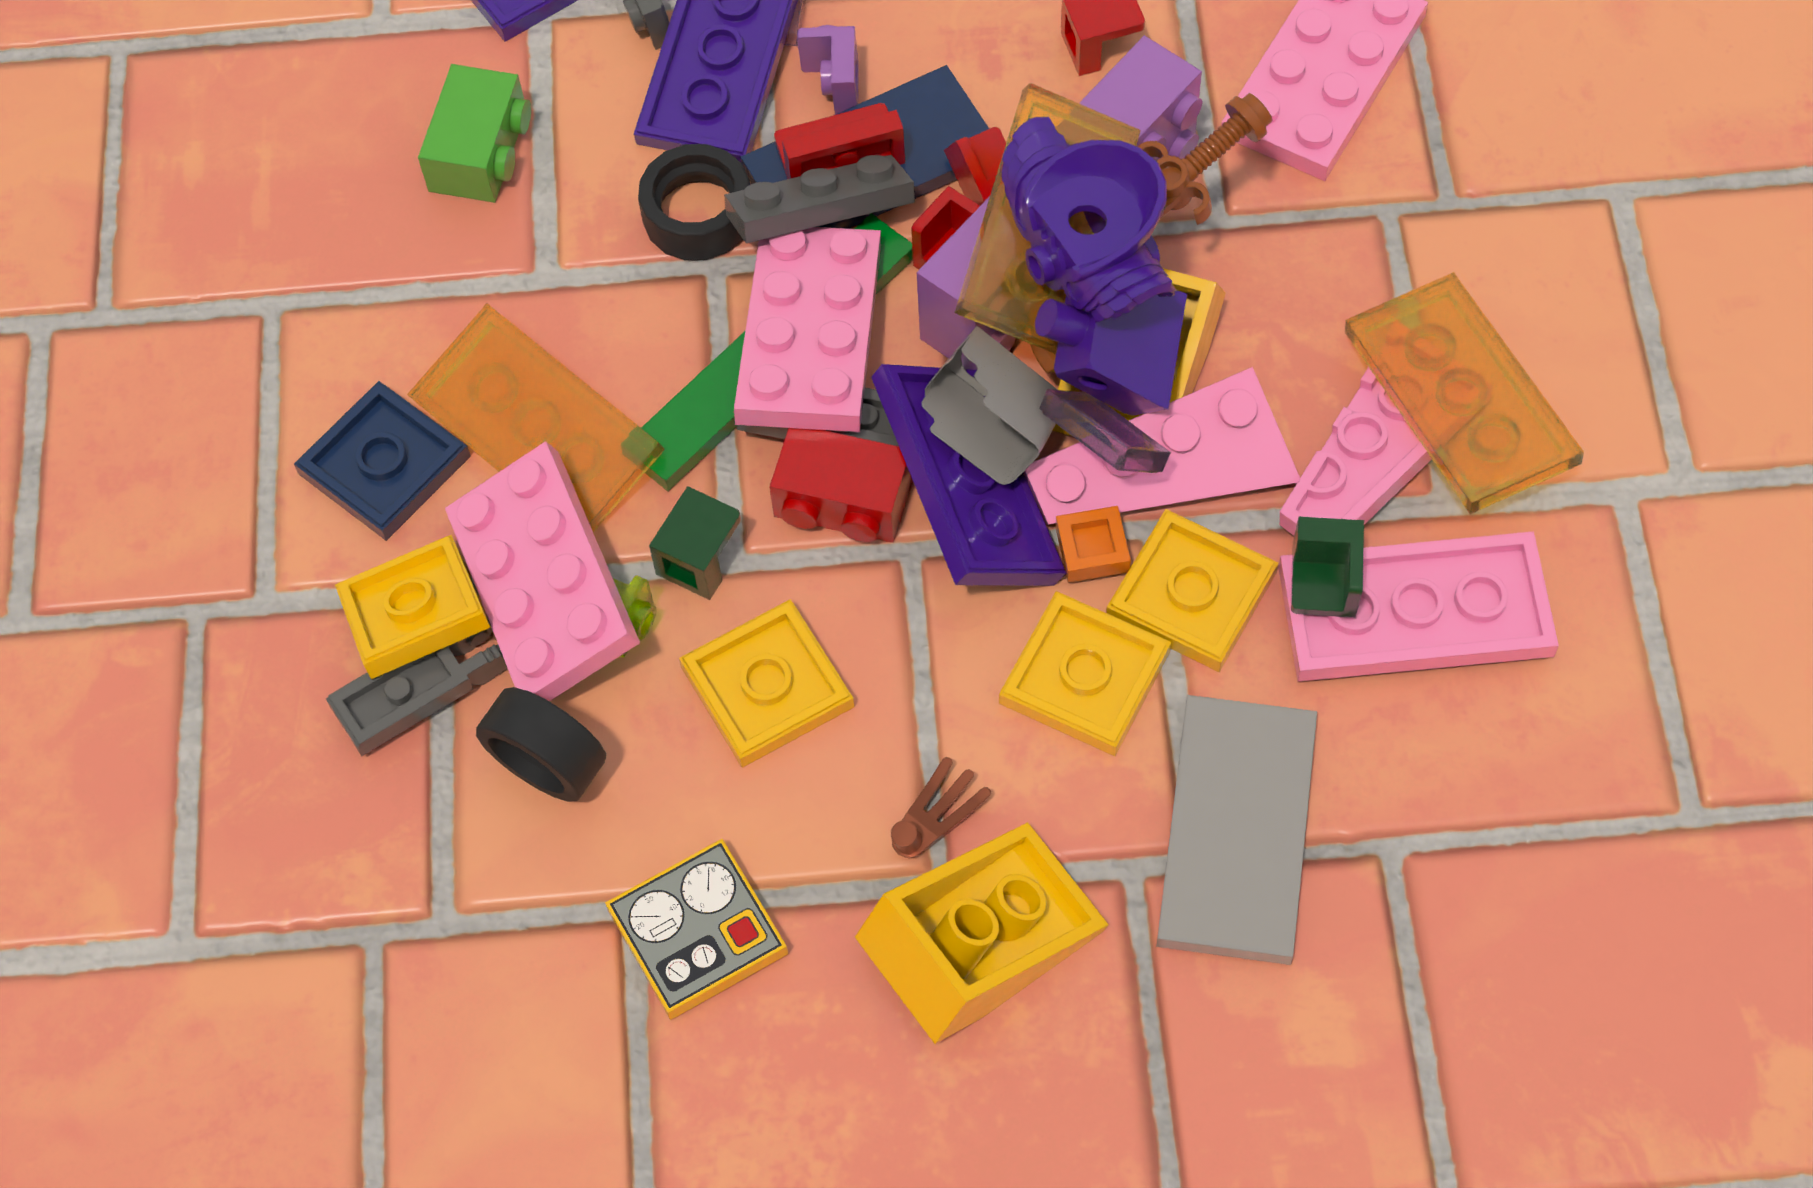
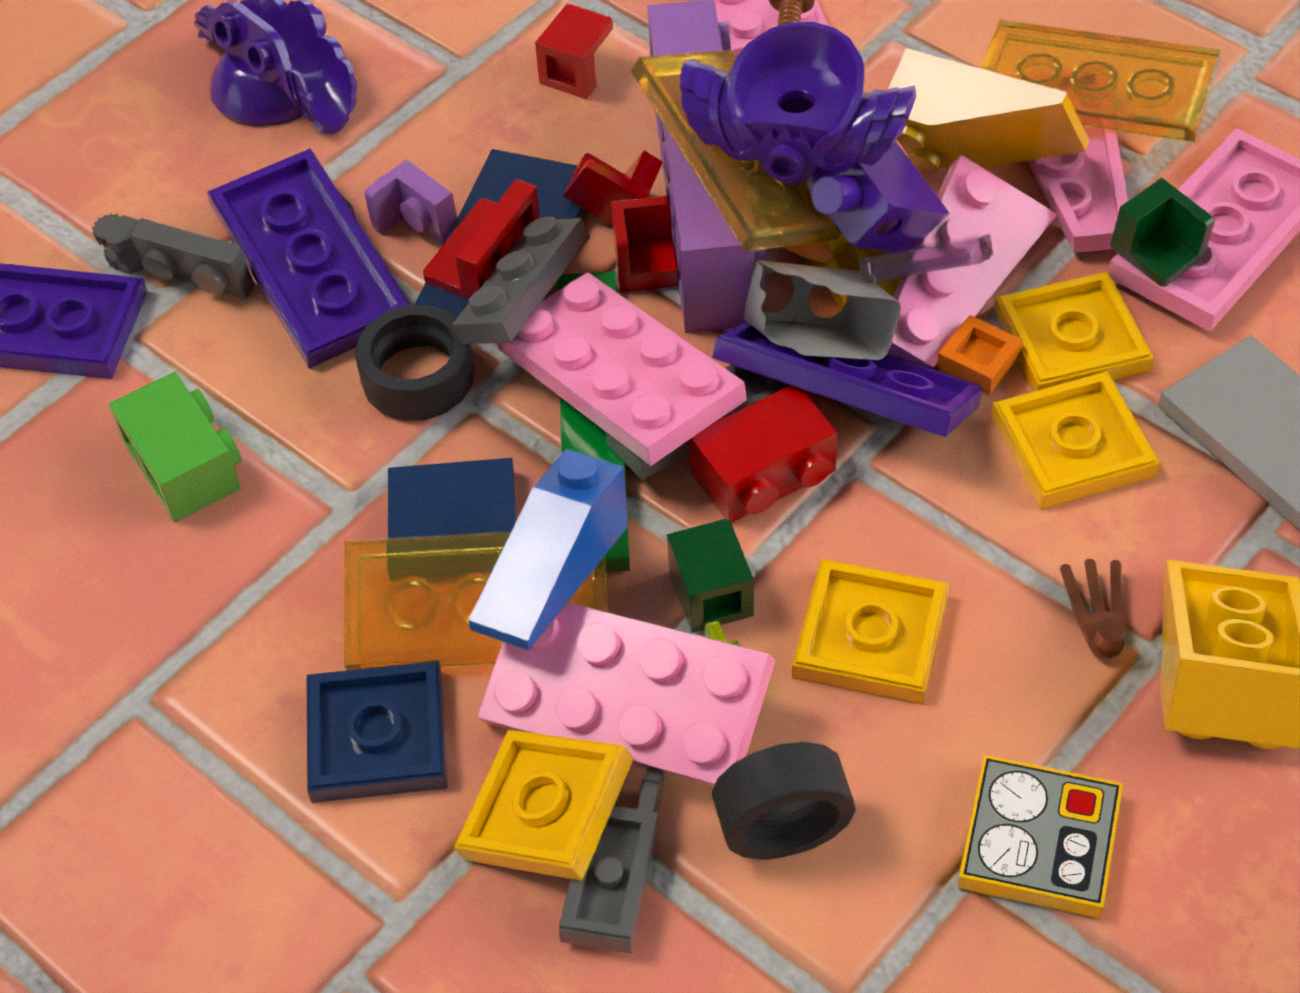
camera: 45 degrees left, 10 degrees down
(587, 427) = (553, 548): none -> slope
(603, 338) = (451, 498): none -> dark blue tile
(1296, 333) = (982, 116): none -> yellow slope

